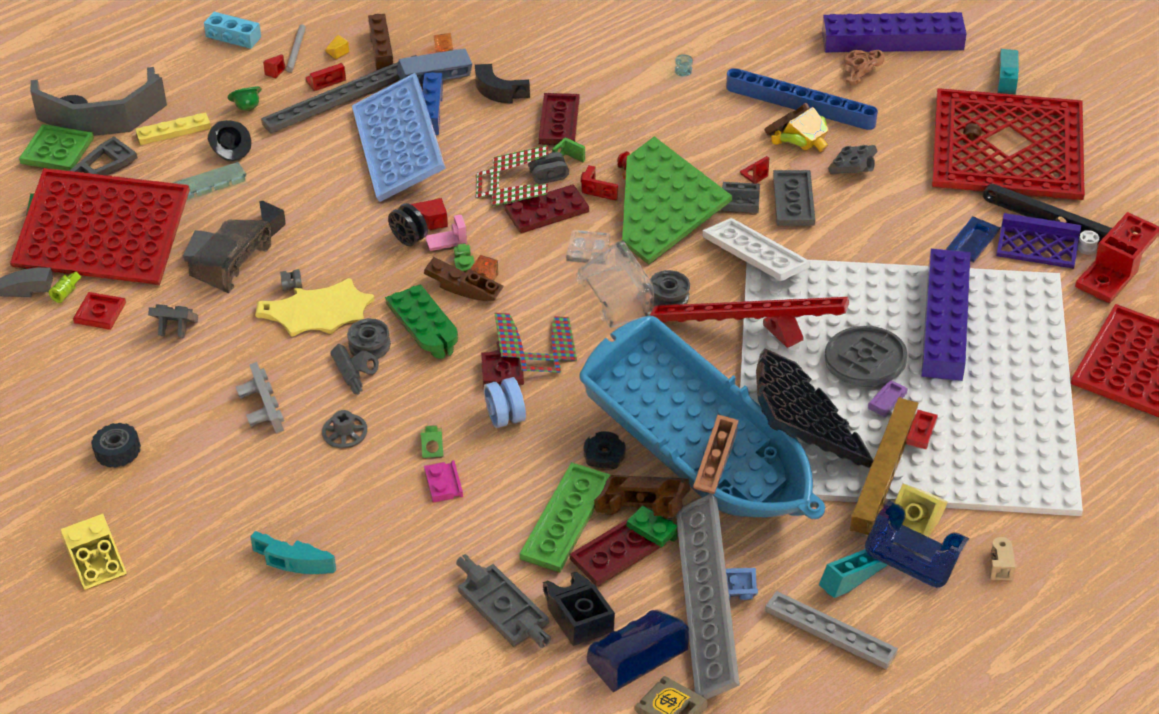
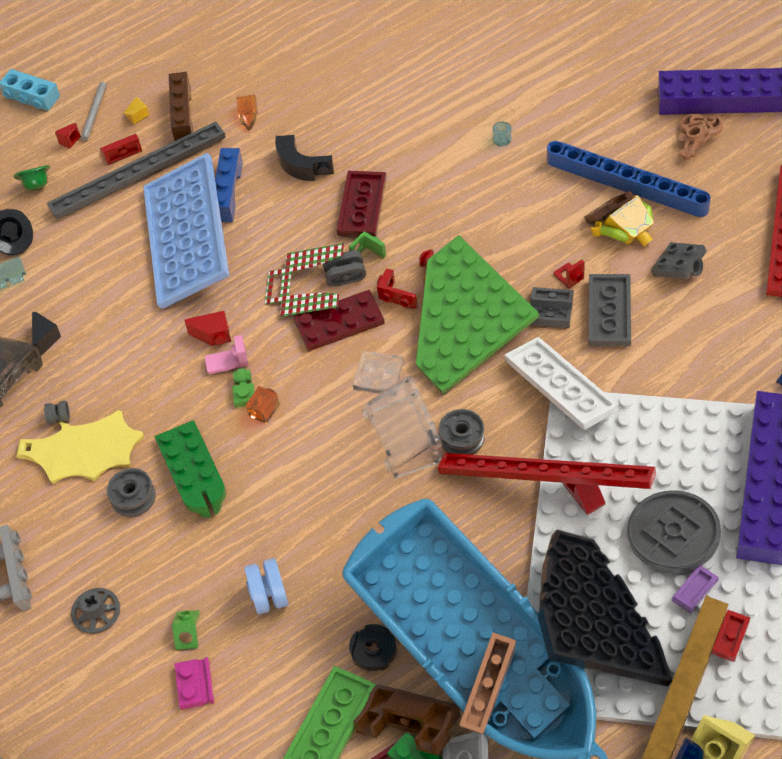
camera: 10 degrees right, 10 degrees up
(350, 367) = (109, 528): dark grey piece -> none
(408, 224) = (184, 345): black wheel -> none
(449, 63) = (243, 135): sand blue brick -> none
(466, 284) = (237, 418): reddish brown slope -> none
(498, 368) = (271, 532): dark red plate -> none
(511, 344) = (282, 501): piece -> none

